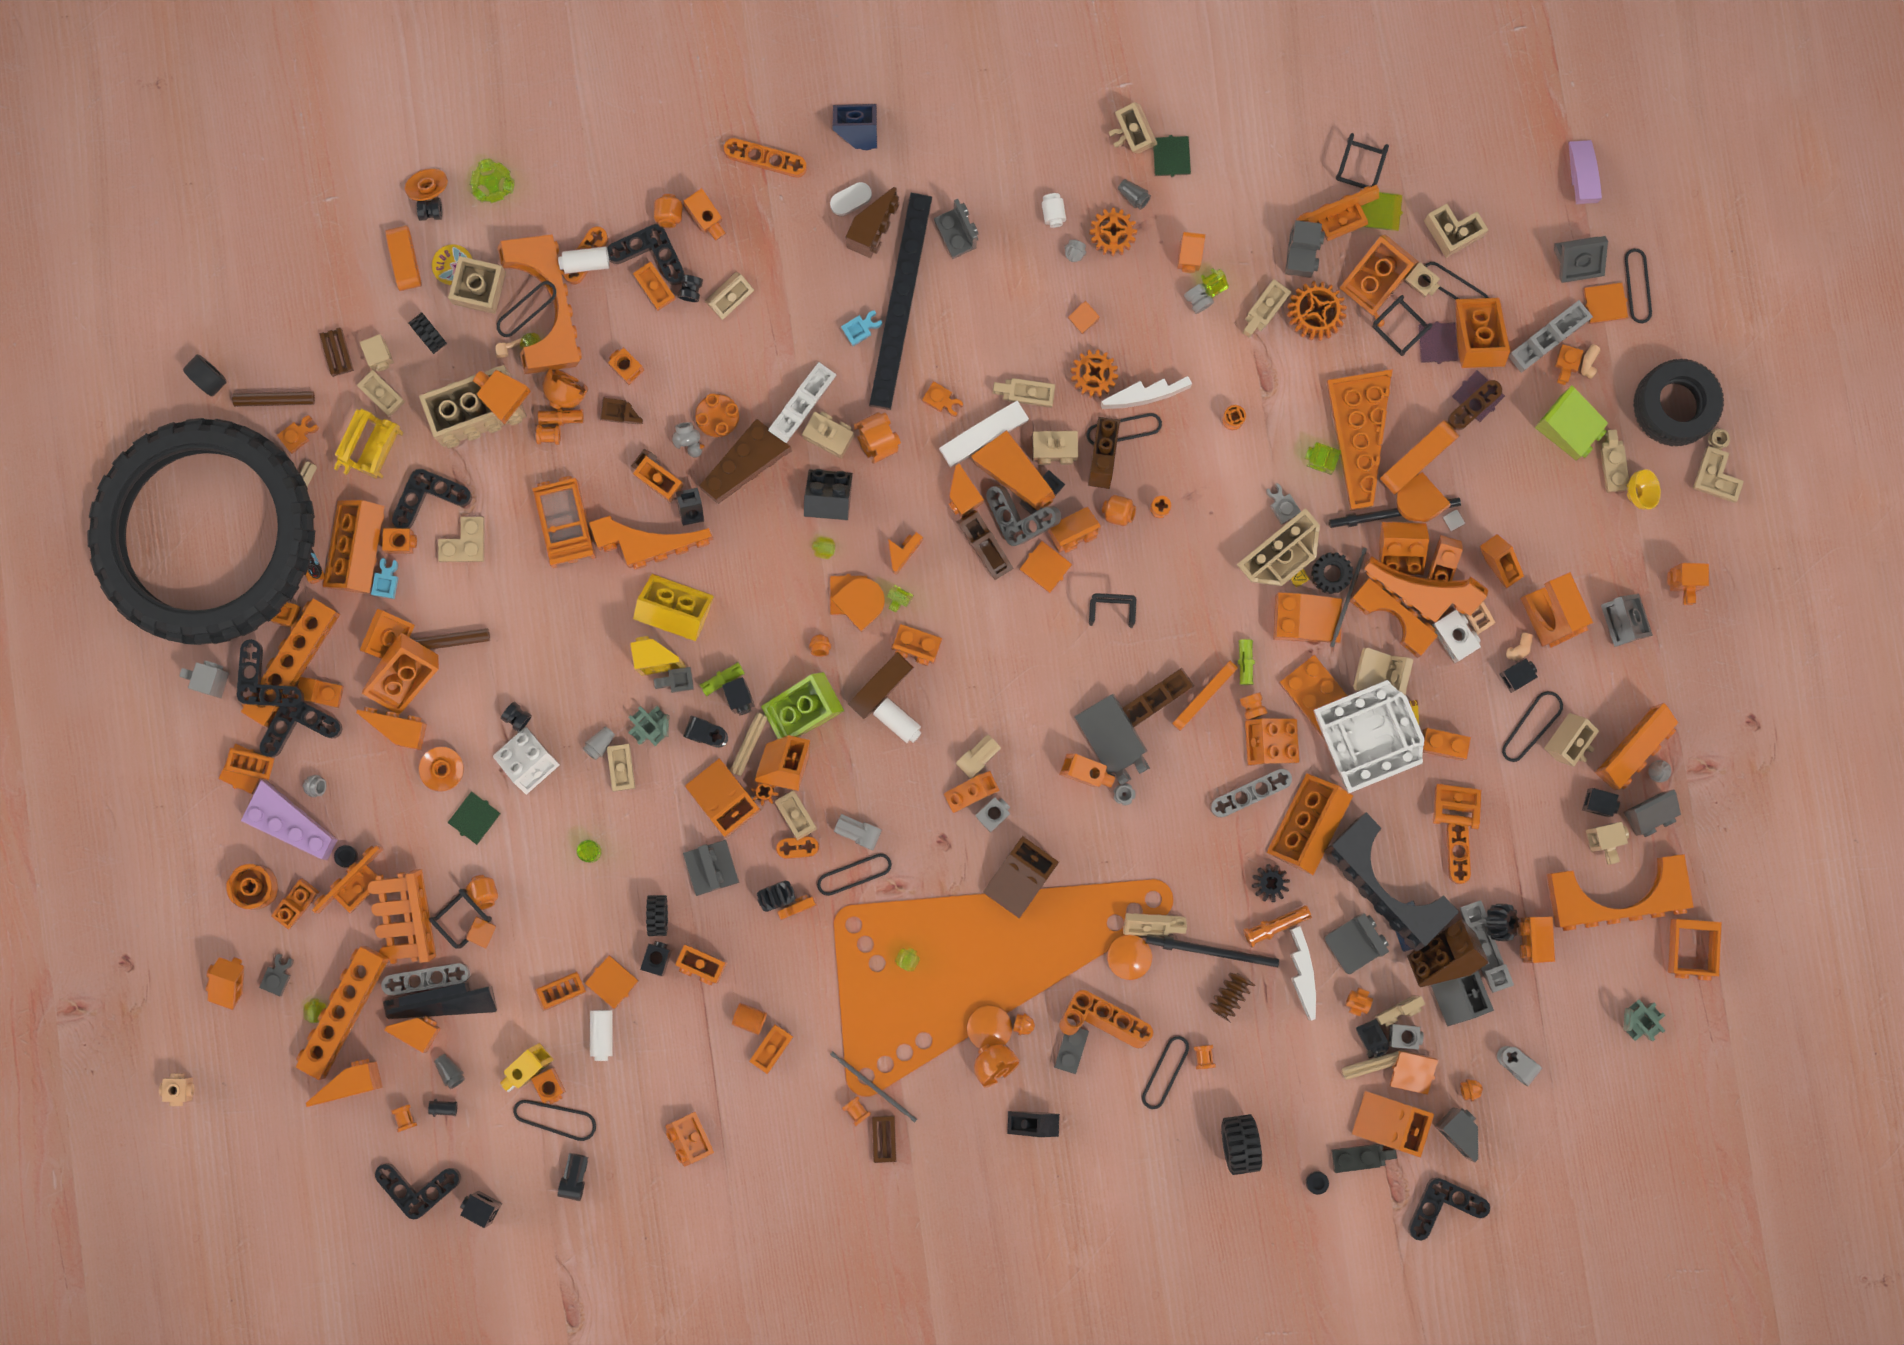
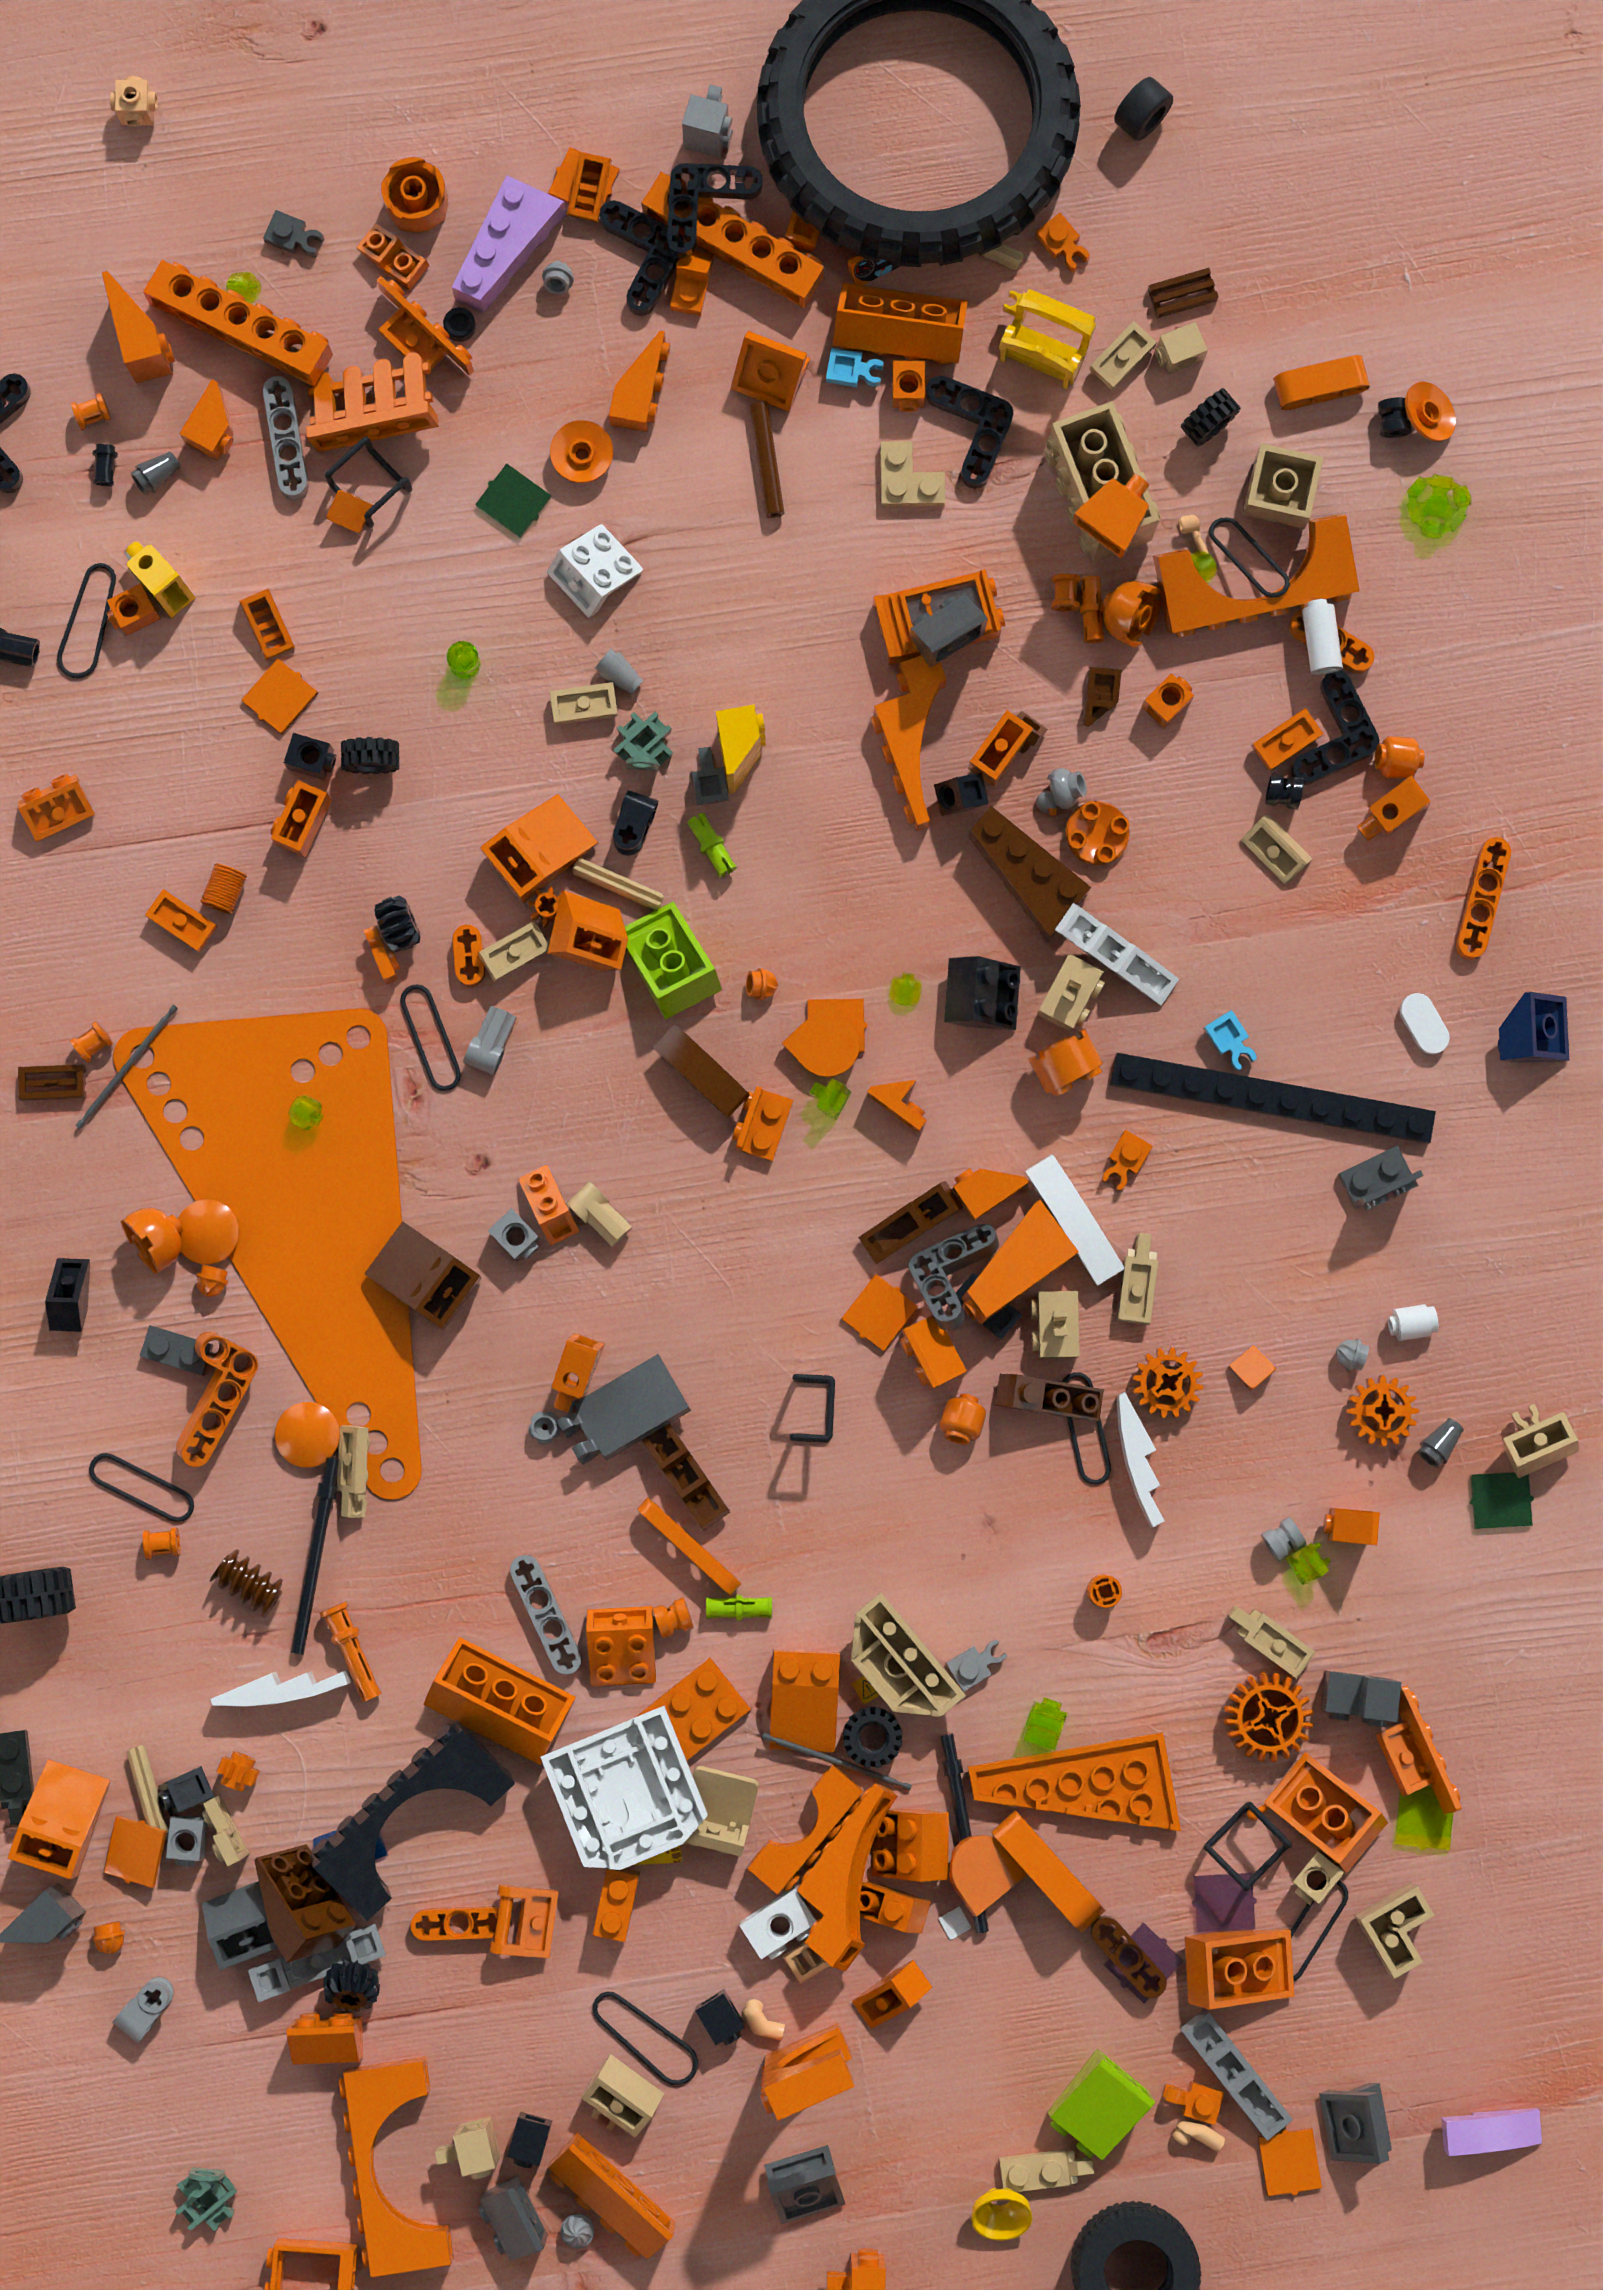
camera: 90 degrees right, 0 degrees up
(225, 982) = (281, 162): orange brick -> none
(273, 398) = (1113, 207): reddish brown piece -> none
(401, 674) = (716, 392): orange slope -> none
(442, 1002) = (253, 461): black wedge -> none
(445, 262) = (1322, 442): yellow sticker -> none
(482, 891) = (406, 512): orange head -> none
(516, 717) = (656, 554): black wheel -> none
(576, 512) = (947, 629): none -> dark grey slope
(601, 1034) = (204, 681): white brick -> none
(673, 607) = (815, 773): yellow slope -> none
(711, 867) = (440, 833): dark grey bracket -> none
(738, 696) = (683, 866): black brick -> none
(869, 224) = (1383, 1049): reddish brown slope -> none
(898, 721) = (650, 1097): white brick -> none
(1155, 510) = (977, 1474): orange bush -> none
(1262, 882) = (412, 1653): black gear -> none
(1350, 142) = (1529, 1771): black piece -> none
(1356, 943) = (323, 1768): dark grey bracket -> none
(1647, 286) = (1317, 2198): black piece -> none

